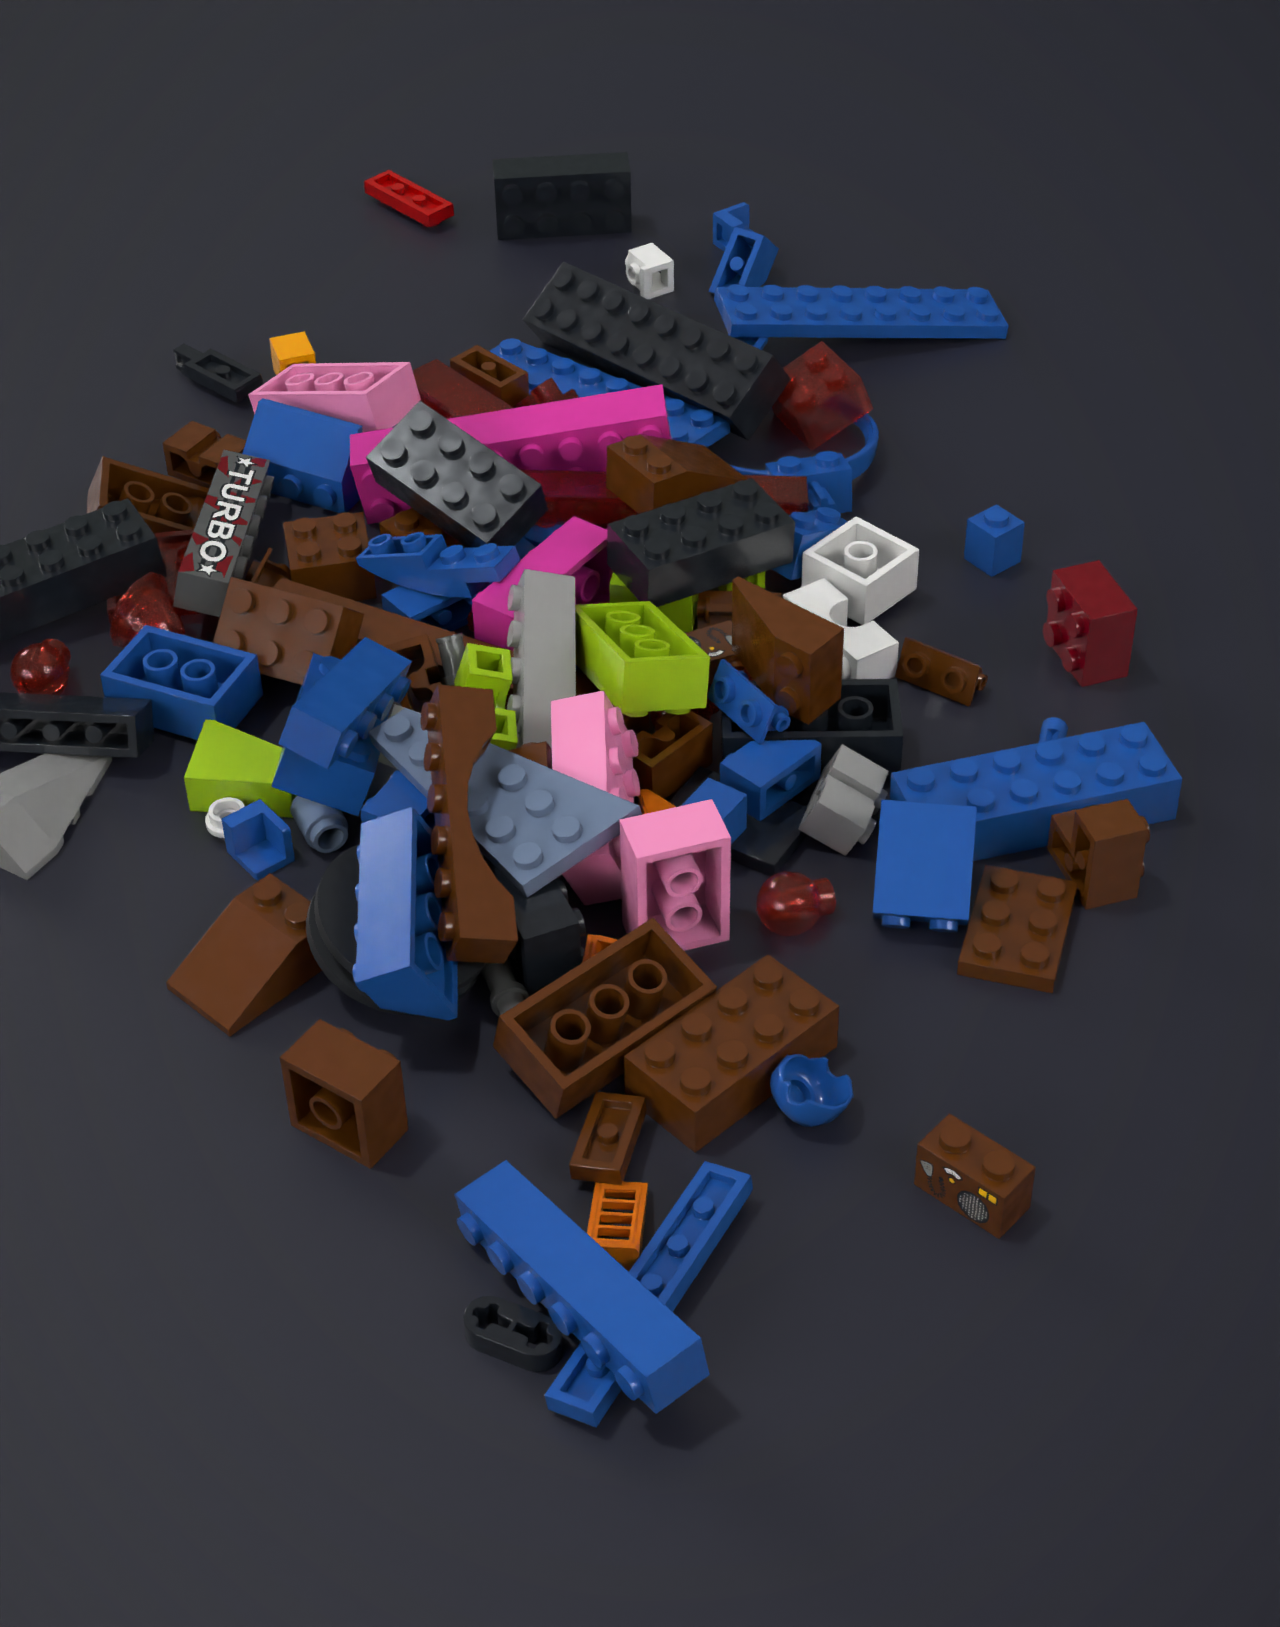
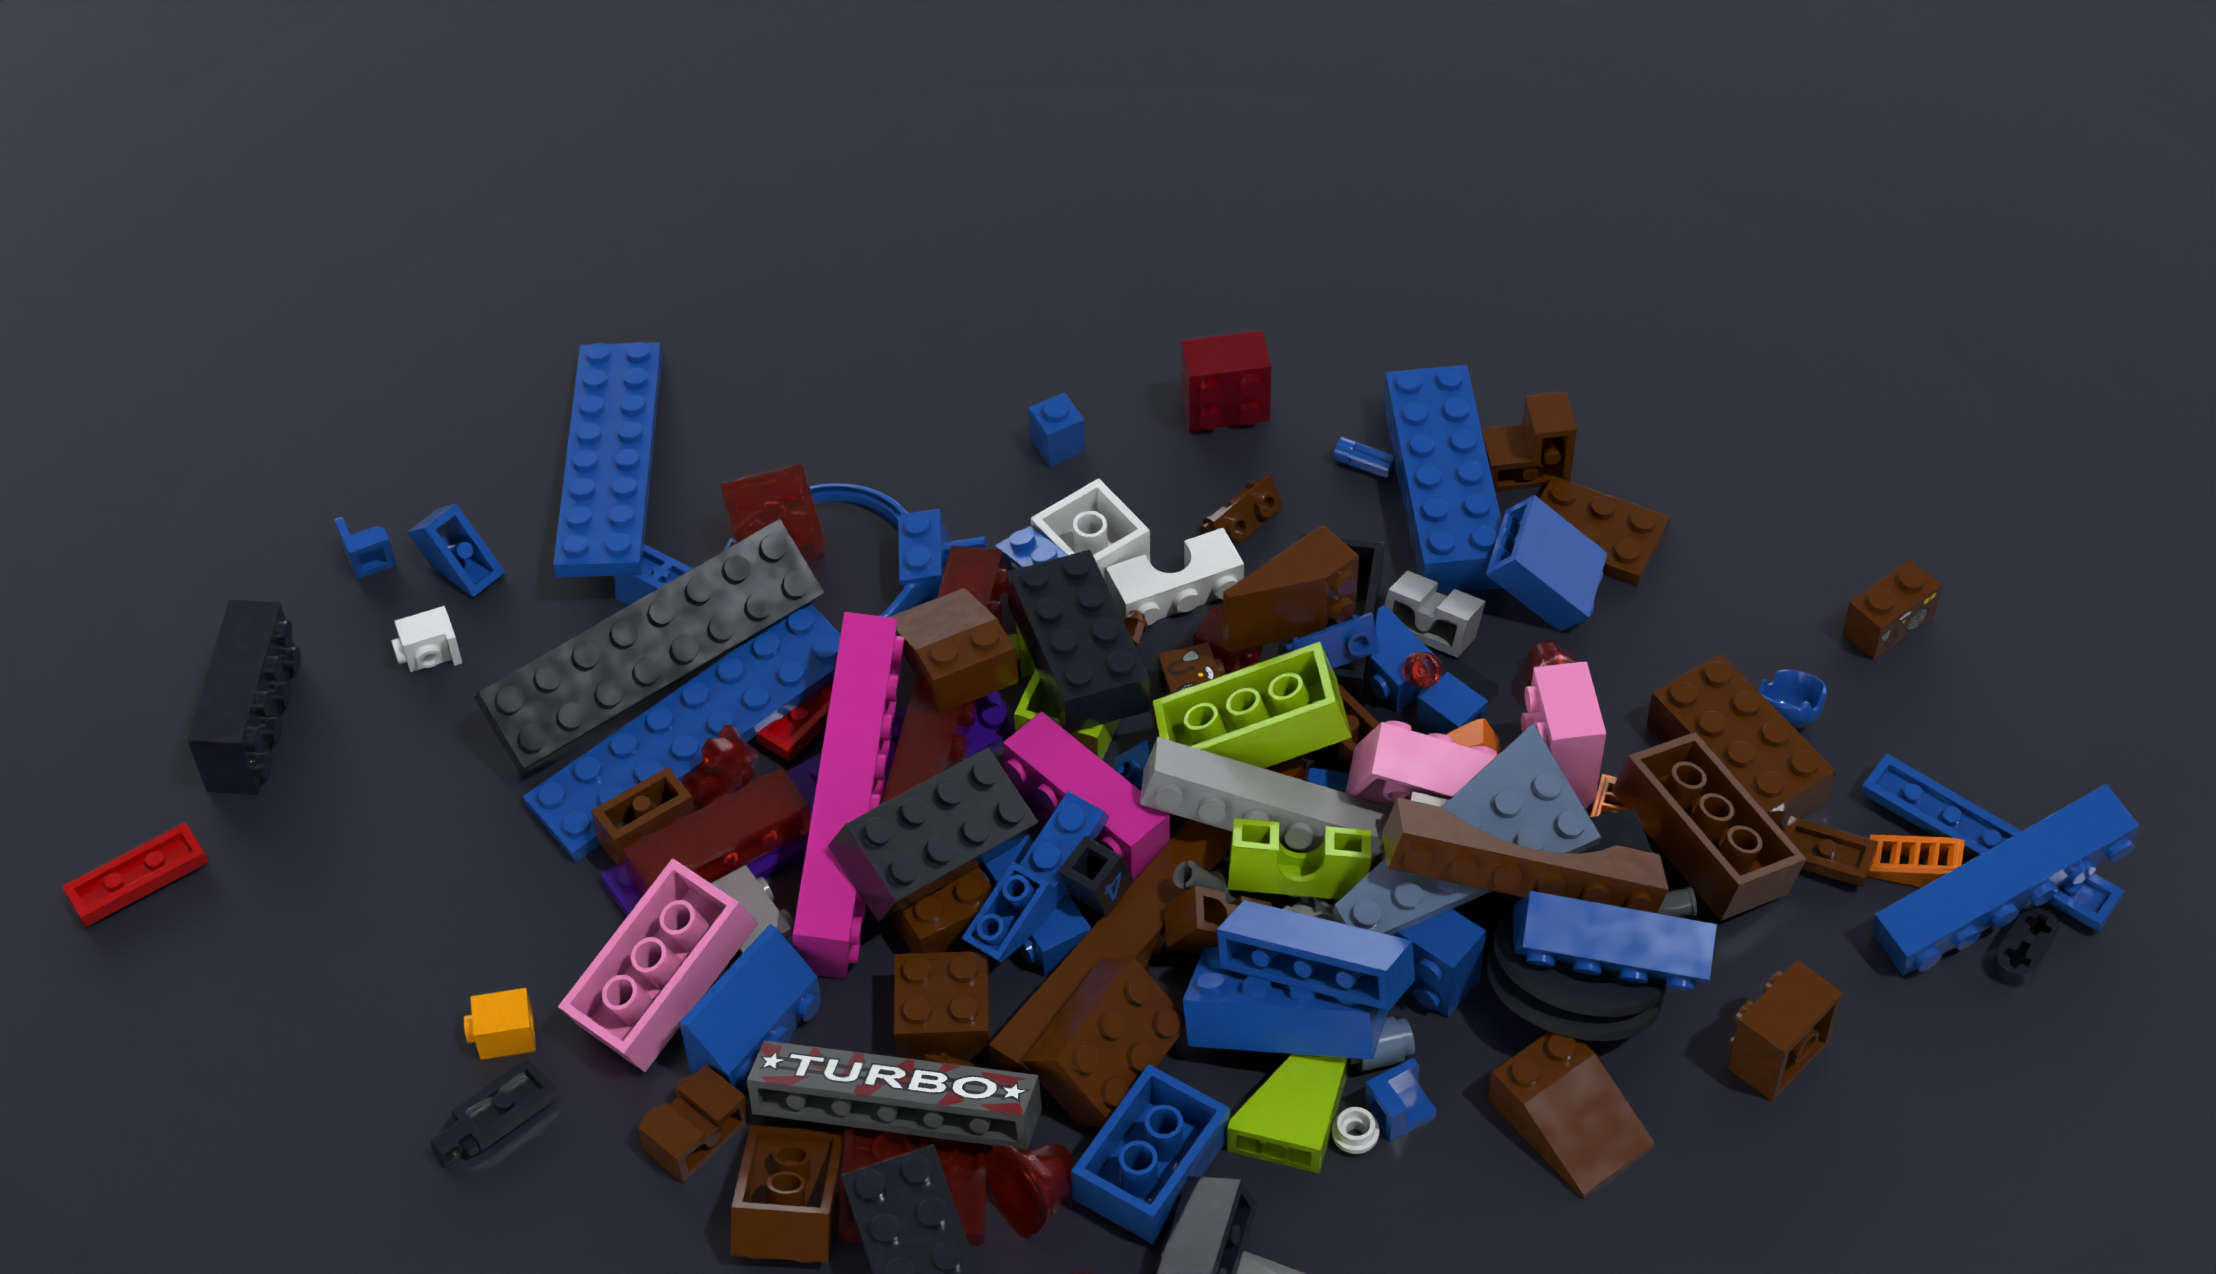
camera: 80 degrees left, 10 degrees up
(444, 592) = (1096, 876): none -> black brick
(739, 773) = (1417, 672): none -> clear red hinge

